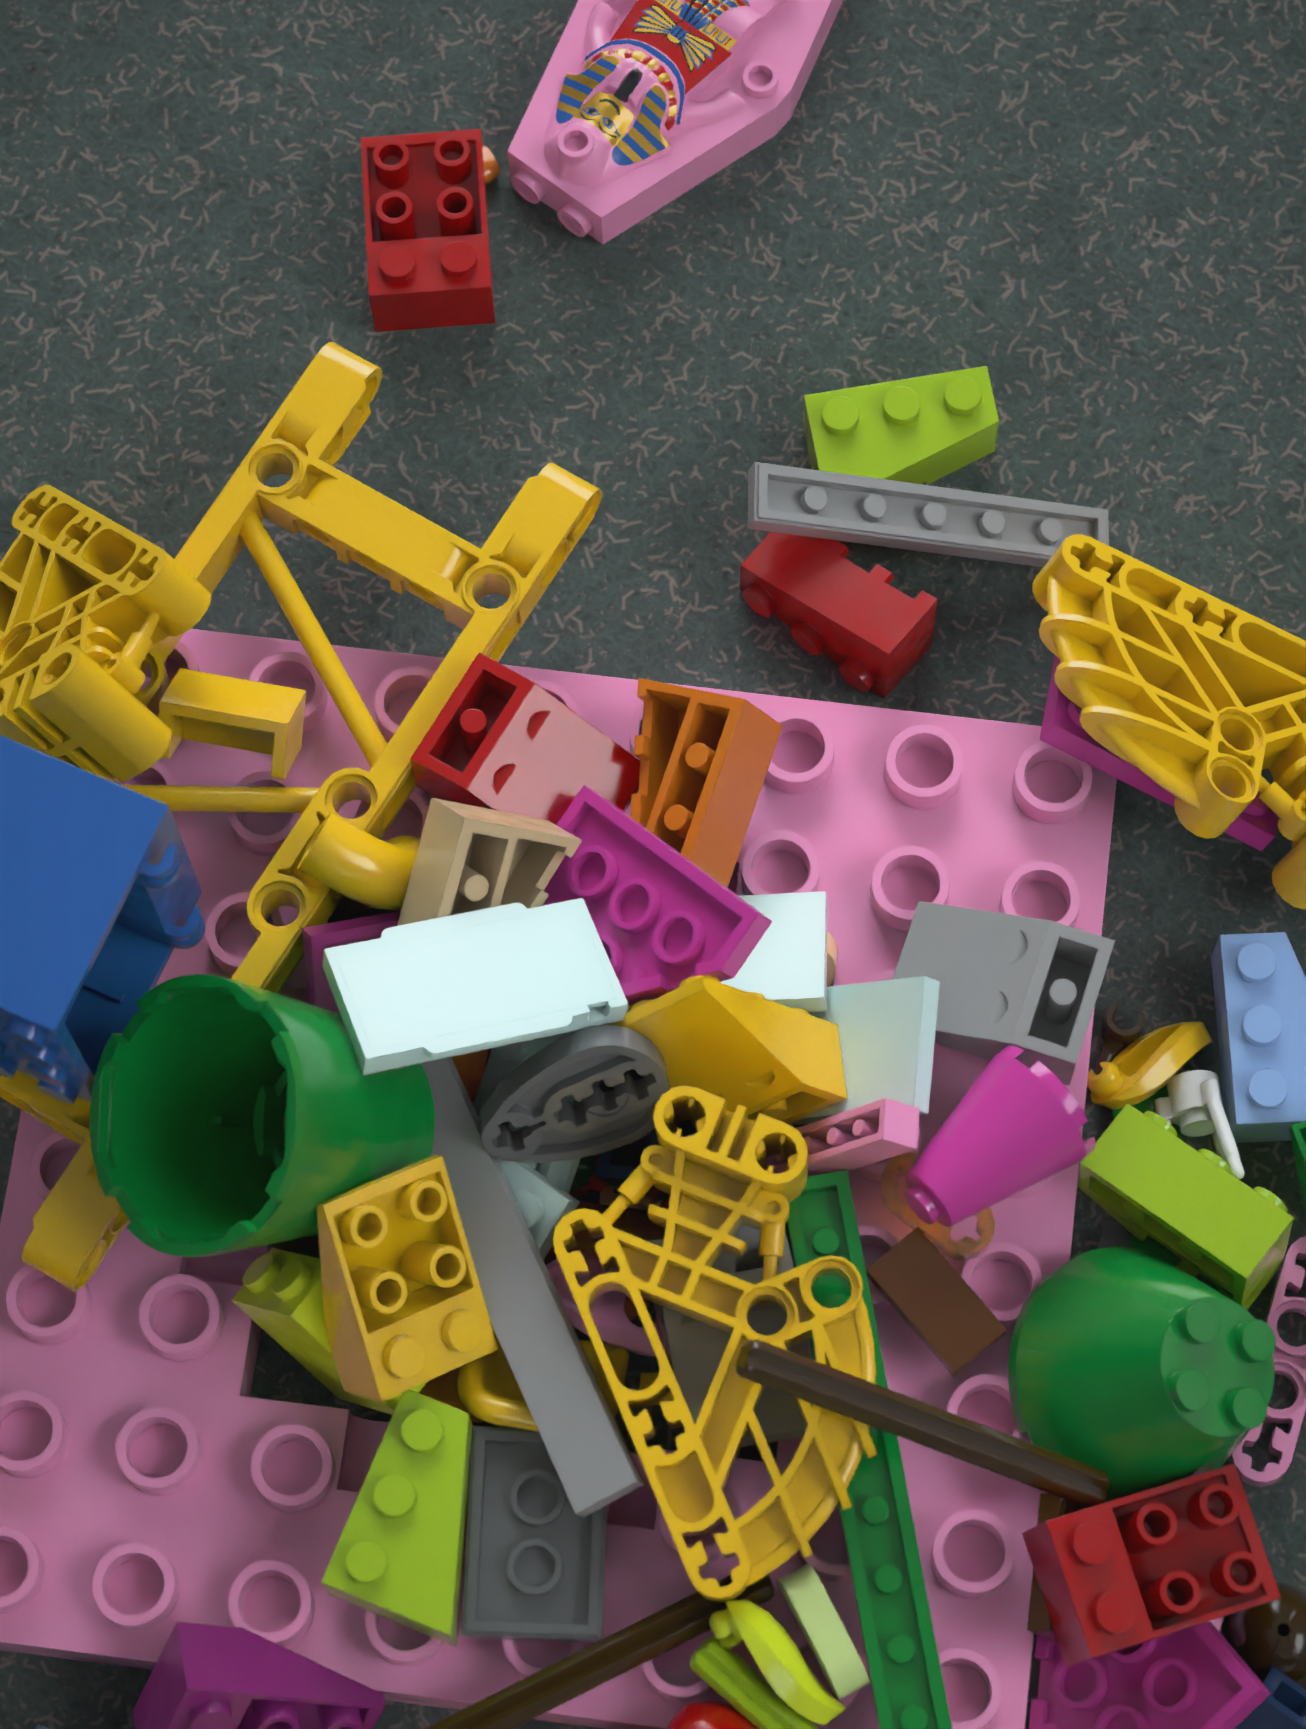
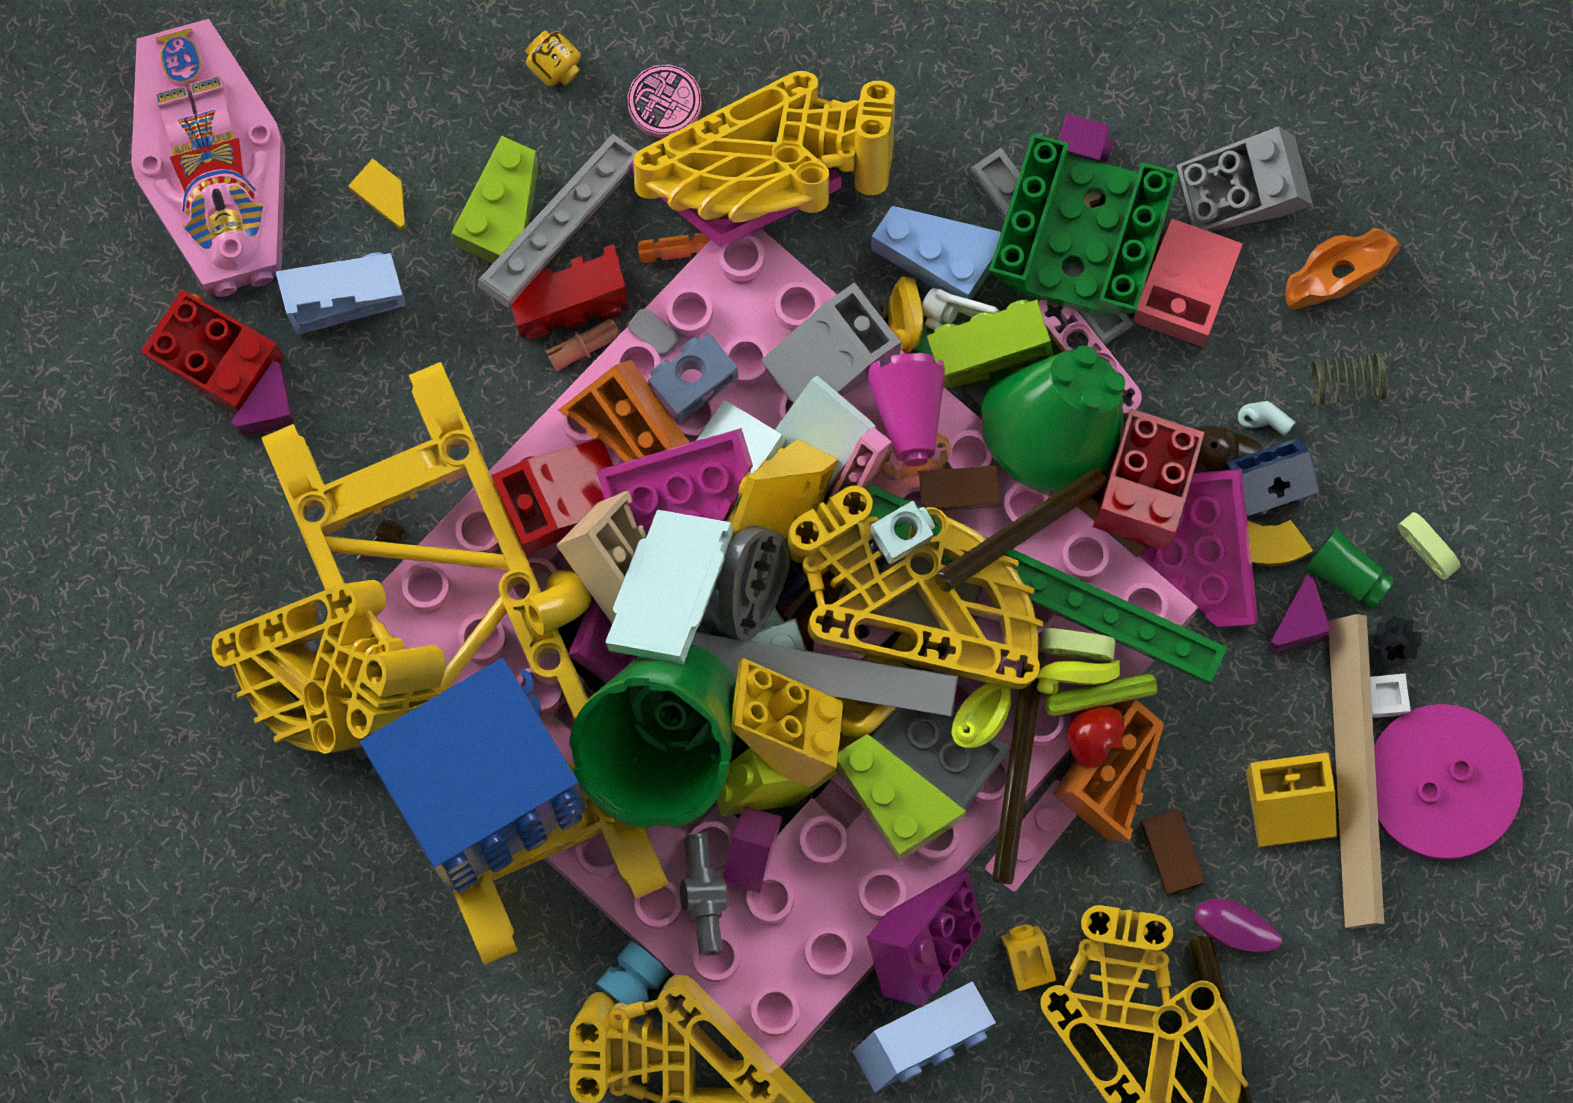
camera: 55 degrees left, 5 degrees up
(91, 1349) = (703, 894): none -> dark grey pin
(205, 1370) = (751, 849): none -> magenta slope
(235, 715) = (431, 612): yellow panel -> none
(348, 604) = (386, 531): none -> dark brown hand
(410, 340) = (266, 406): none -> magenta slope
(615, 1562) = (981, 716): none -> neon yellow arm
(622, 318) = (339, 291): none -> light blue wedge
(765, 1224) = (890, 544): none -> light aqua brick
(782, 670) = (582, 344): none -> nougat axle
(805, 284) = (381, 192): none -> yellow tile
(845, 856) = (686, 398): none -> sand blue brick
(860, 741) = (653, 331): none -> light grey piece
(1002, 687) = (671, 247): none -> orange axle
(1150, 363) = (553, 58): none -> yellow head
(1208, 540) = (664, 100): none -> tile

